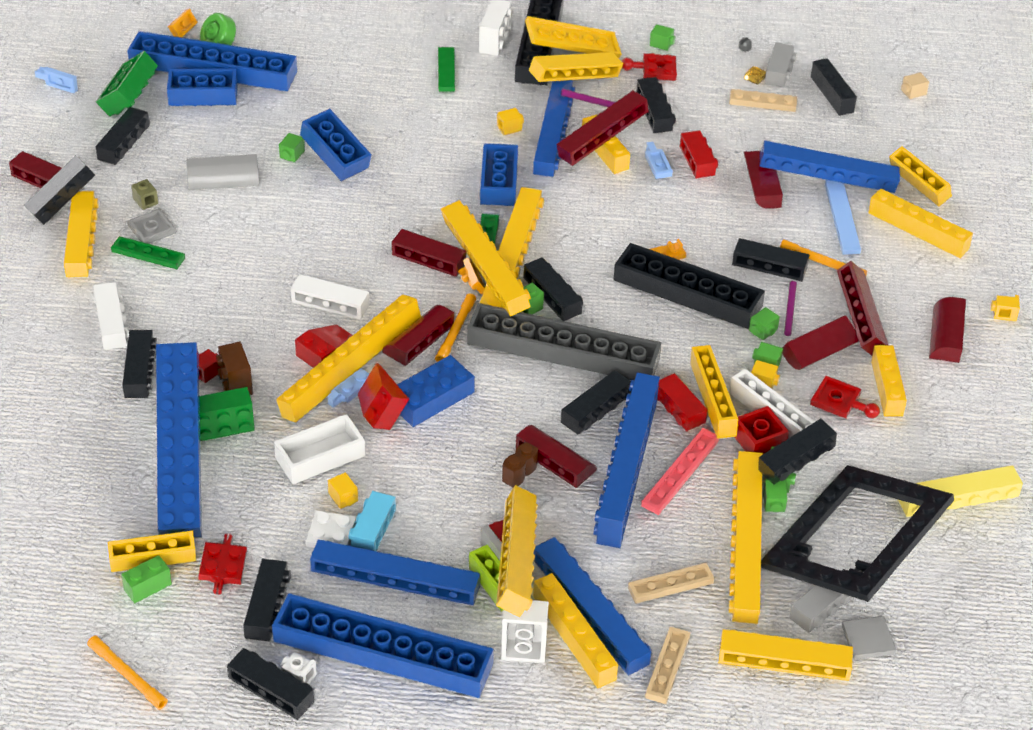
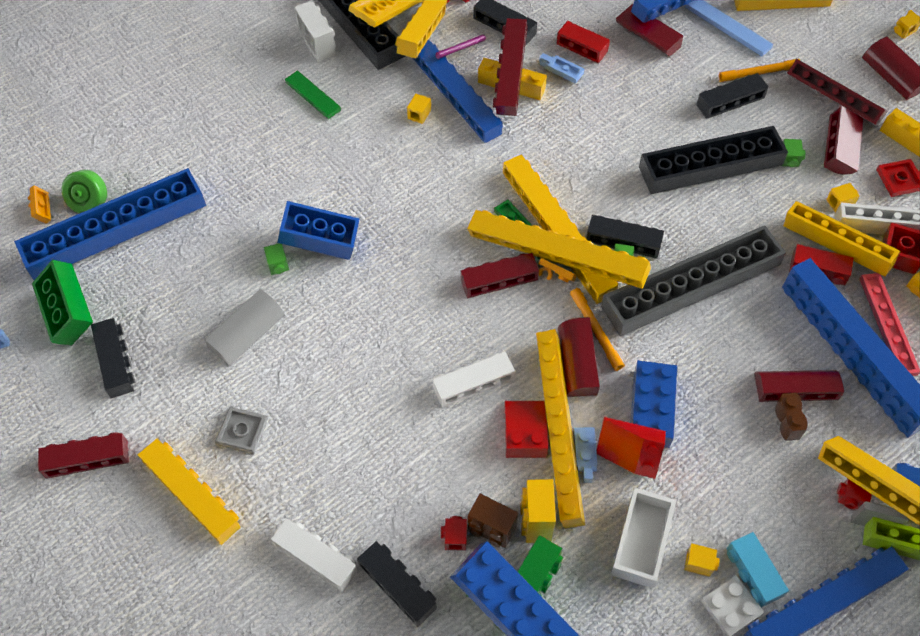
camera: 40 degrees left, 15 degrees up
(59, 190) = (128, 464): brick -> none
(144, 194) = (201, 402): olive brick -> none
(148, 252) = (268, 459): green tile -> none
(202, 87) = (133, 255): blue brick -> none
(267, 379) = (538, 510): none -> yellow brick
(499, 174) = (471, 163): blue brick -> none
(595, 402) = (771, 313): black brick -> none
(673, 250) = (658, 139): light orange plate -> none
(768, 353) = (826, 178): bright green brick -> none
(790, 308) = (785, 125): magenta bar -> none

